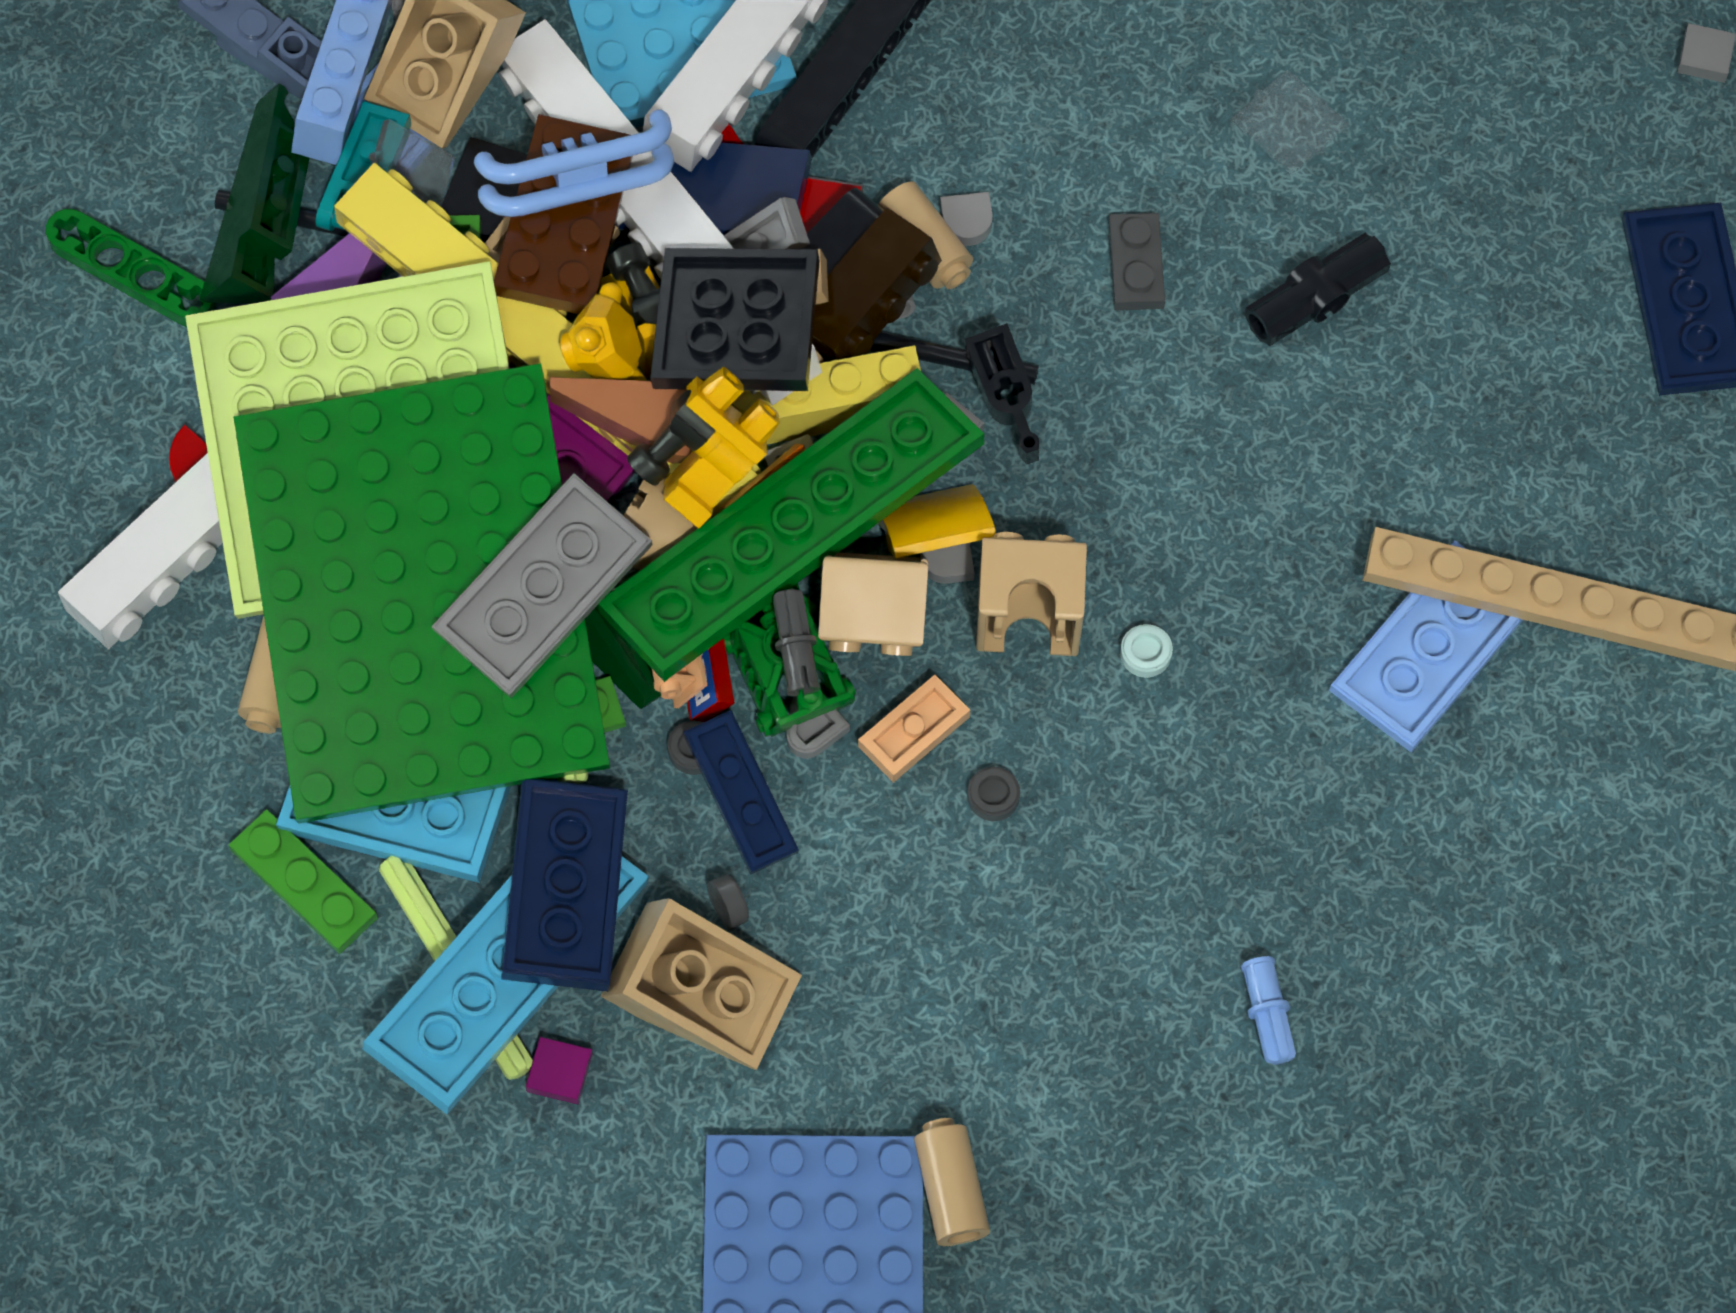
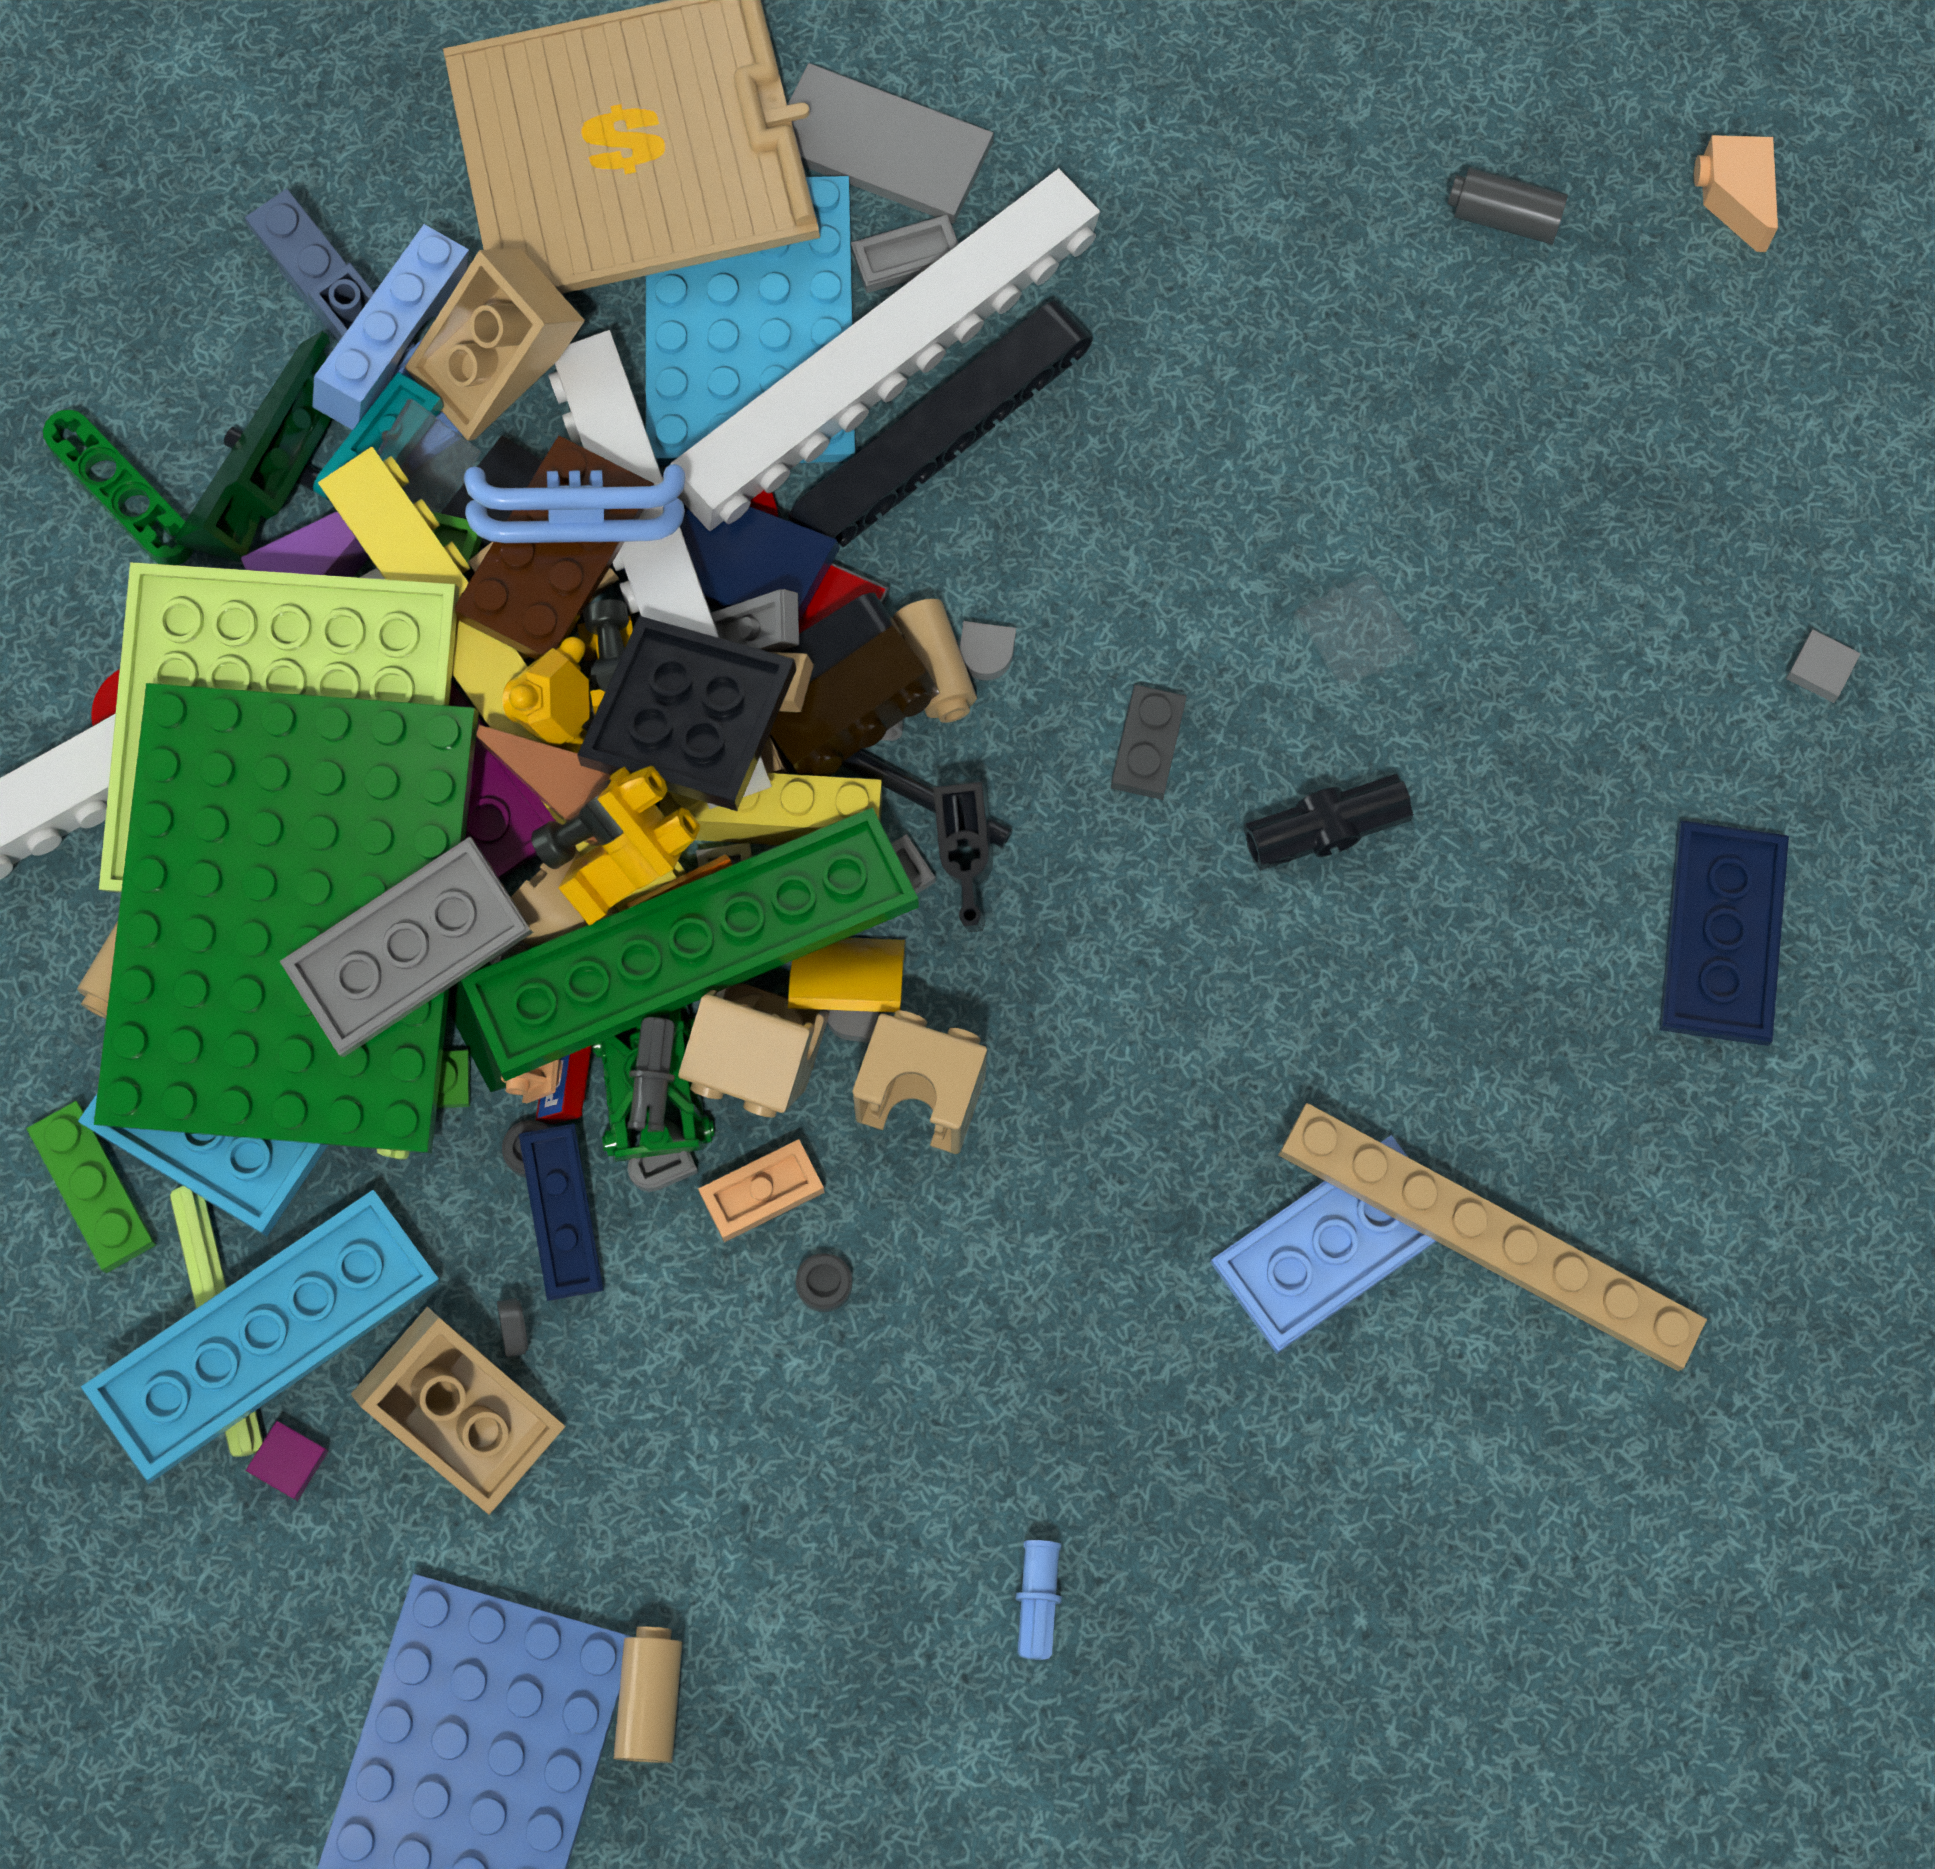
camera: 15 degrees right, 5 degrees up
(565, 884) = (344, 1268): dark blue tile -> none
(1146, 650) = (1030, 1169): light aqua tile -> none

